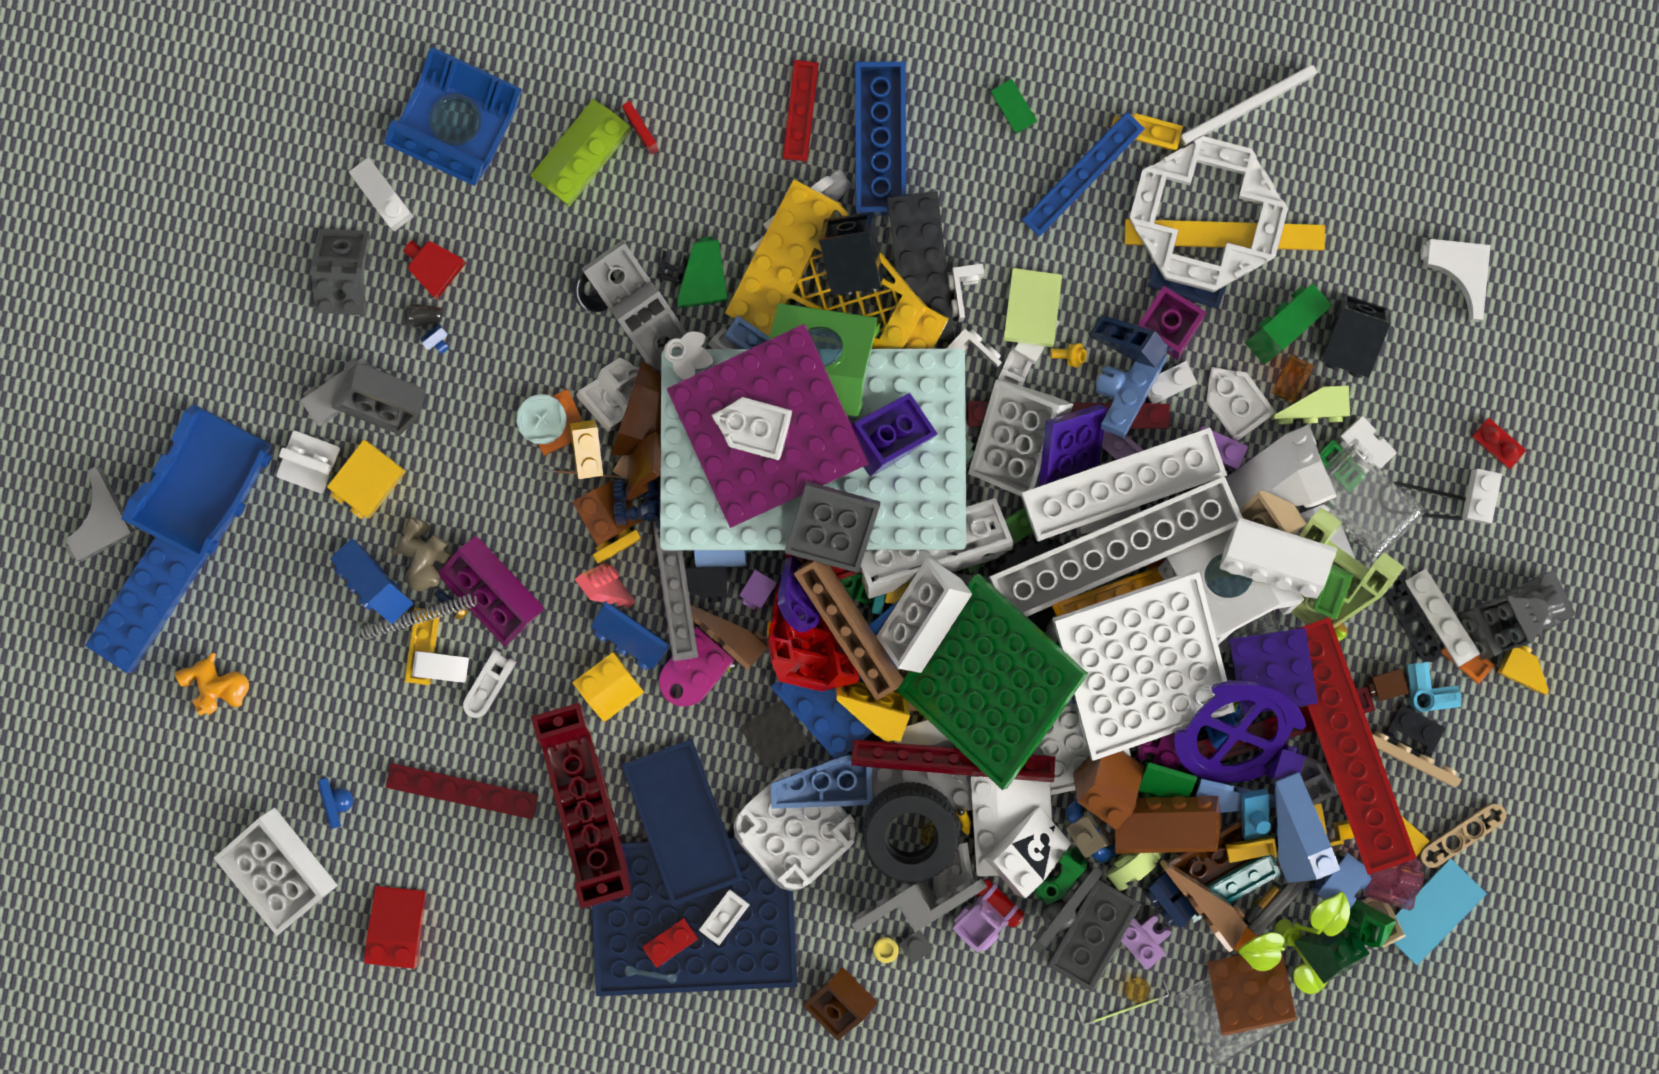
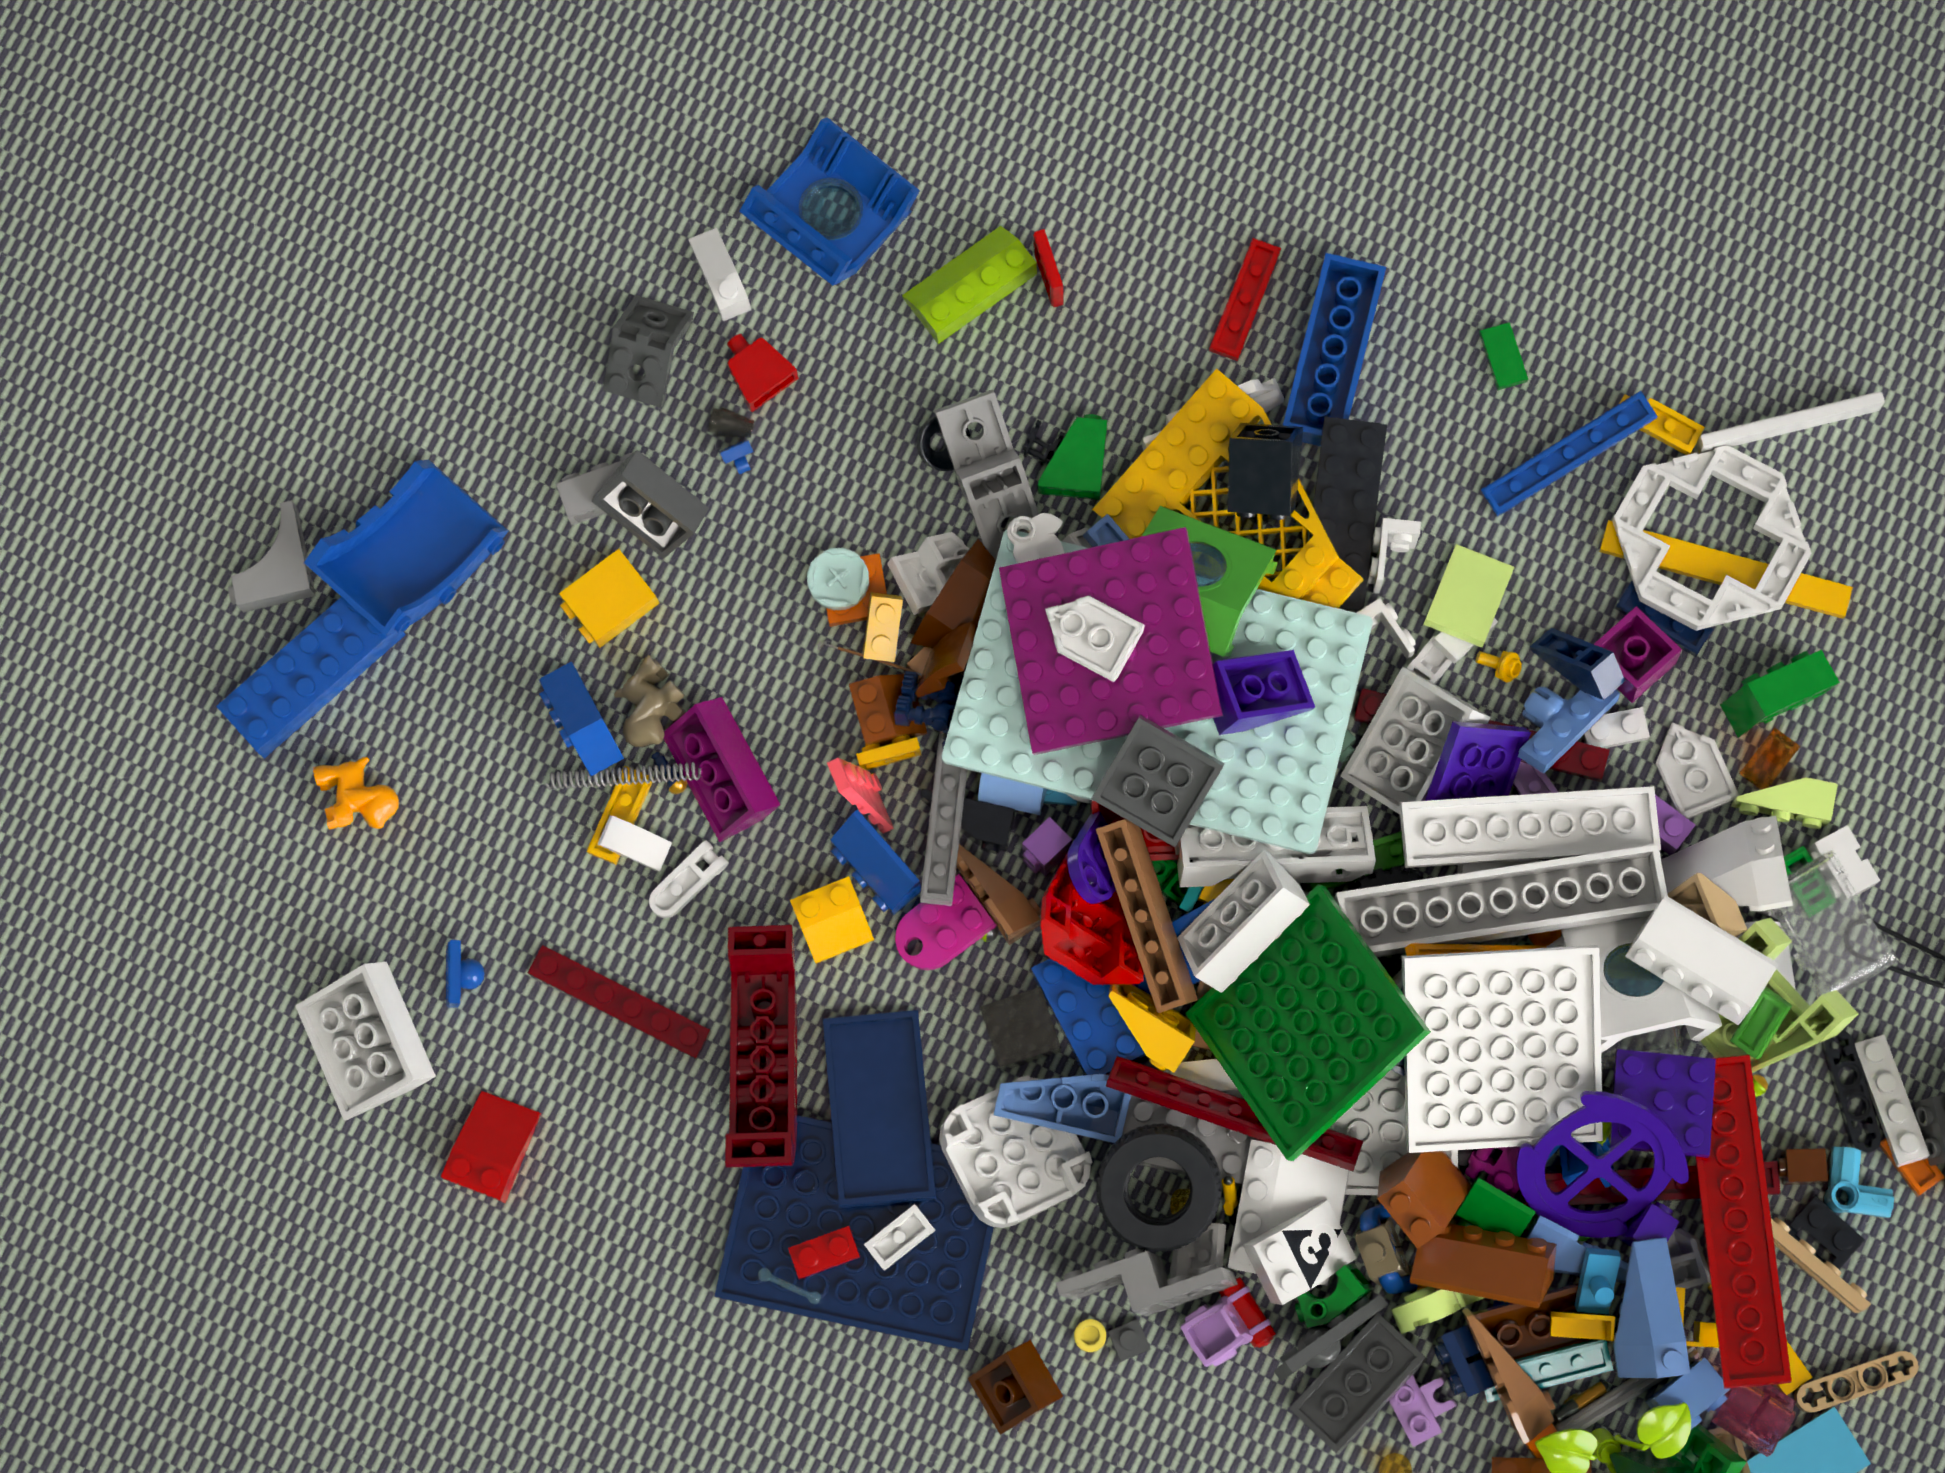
camera: 25 degrees right, 10 degrees down
(307, 462) = (544, 561): white bracket -> none
(1356, 336) = (1859, 729): black slope -> none

